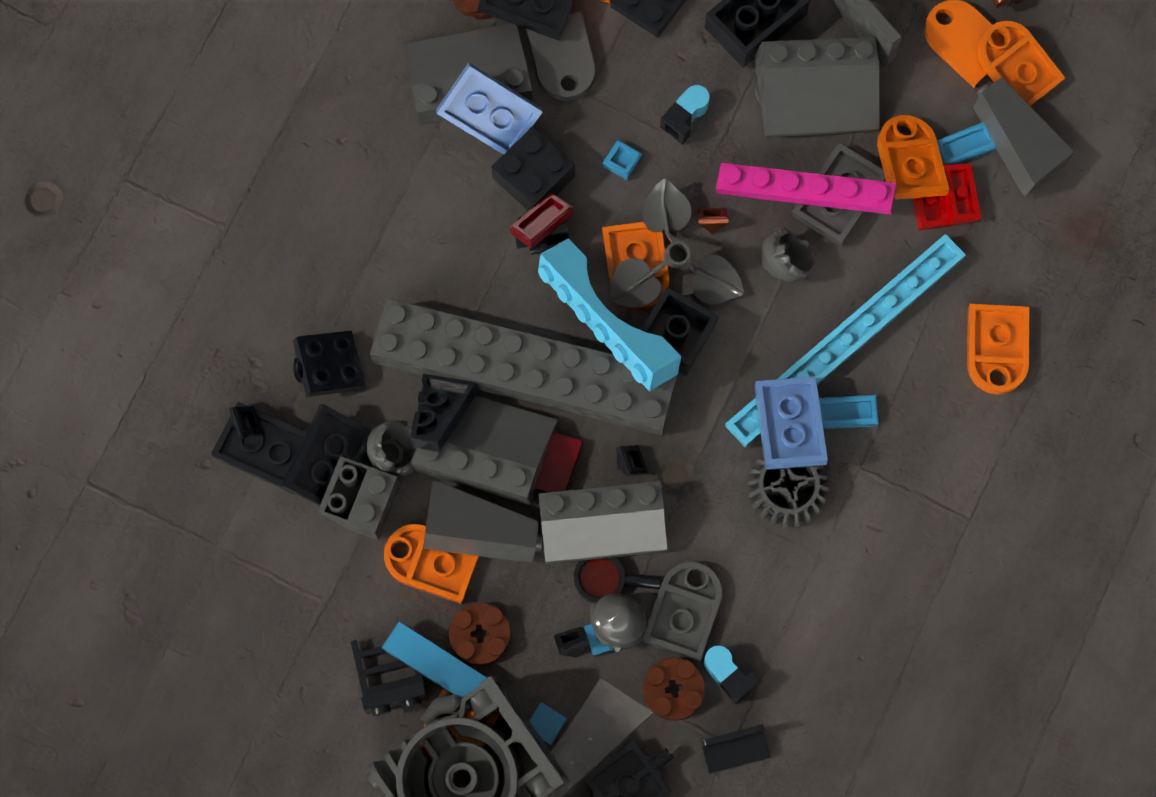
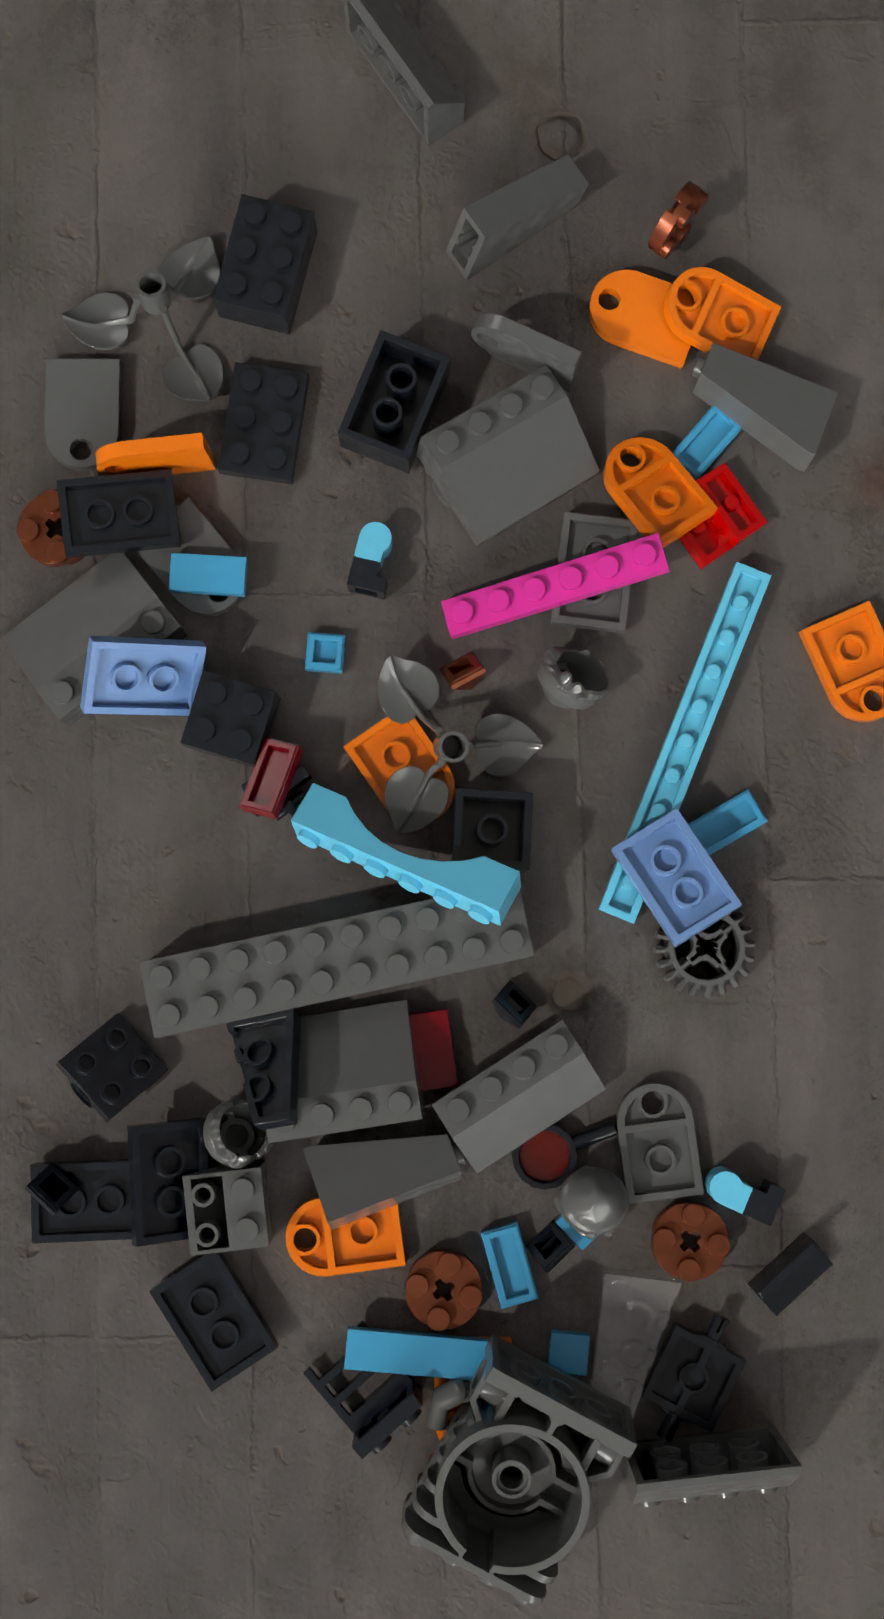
camera: 30 degrees left, 10 degrees up
(308, 571) = (214, 1319): none -> black plate
(535, 641) = (509, 1264): none -> dark azure tile
(568, 67) = (208, 574): none -> dark azure tile

